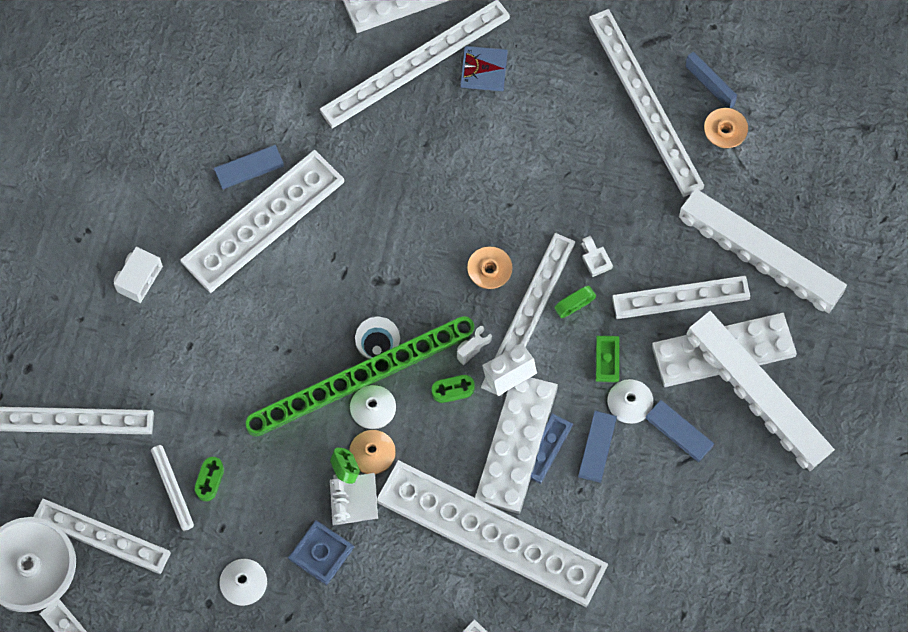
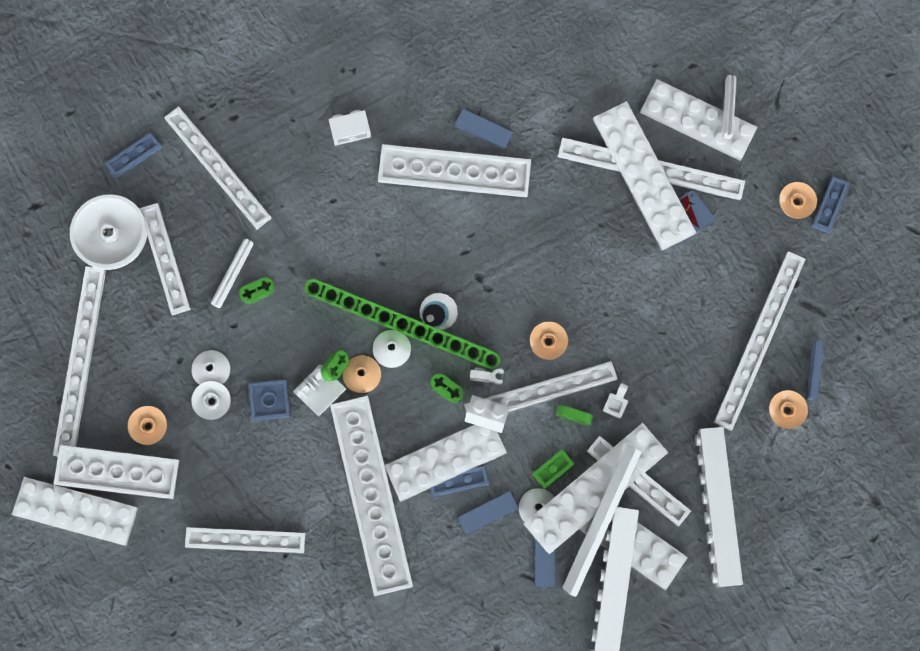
camera: 45 degrees right, 10 degrees up
(270, 592) = (204, 393): none -> white dish
(417, 71) = (644, 176): none -> white plate
(657, 336) = (583, 496): none -> white plate
(691, 350) = (601, 520): none -> white tile

